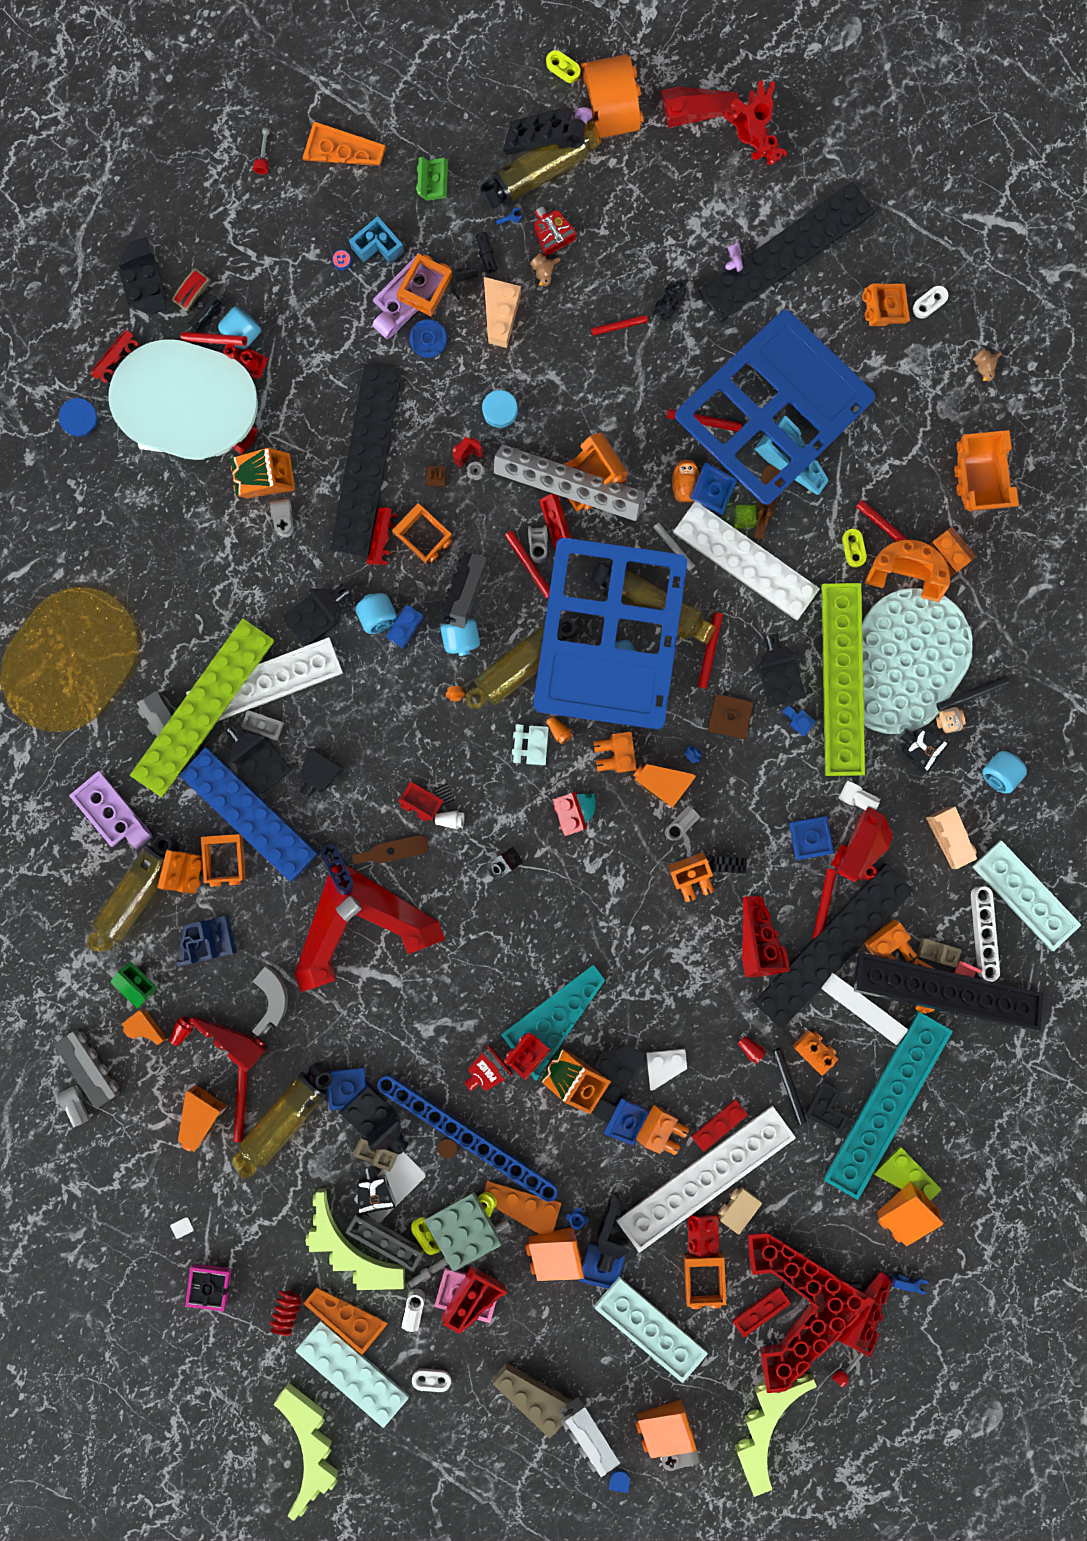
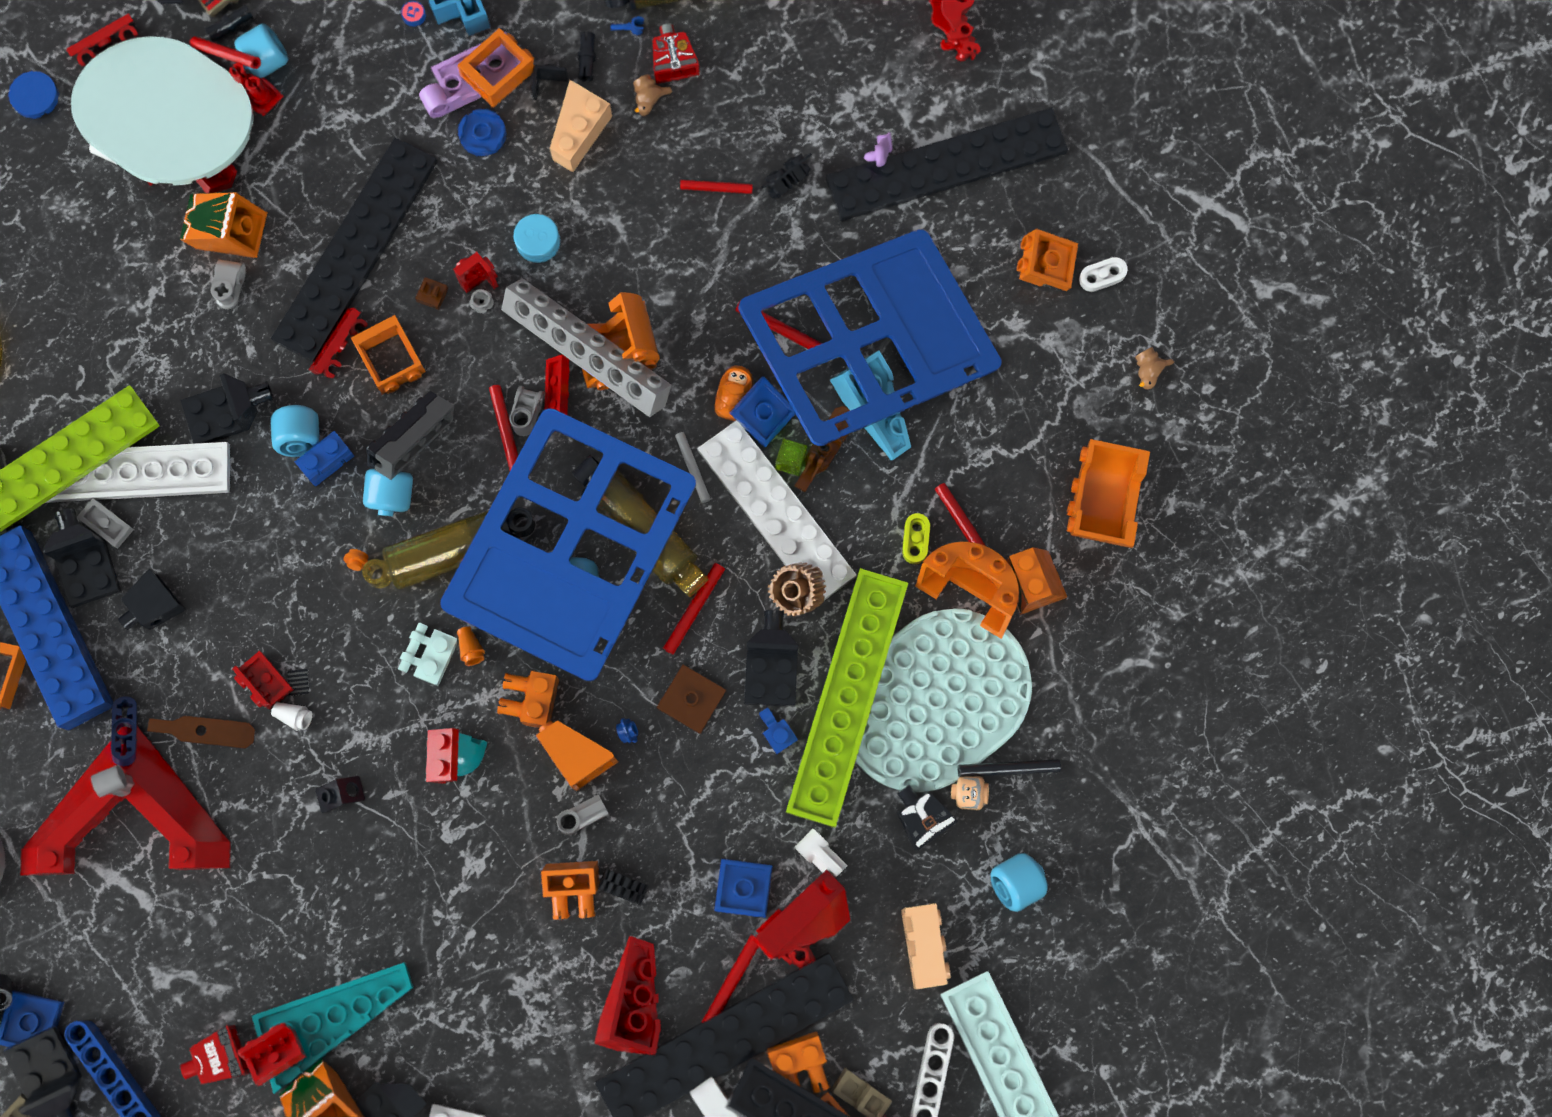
camera: 10 degrees right, 10 degrees down
(790, 605) = (809, 585): none -> medium nougat brick

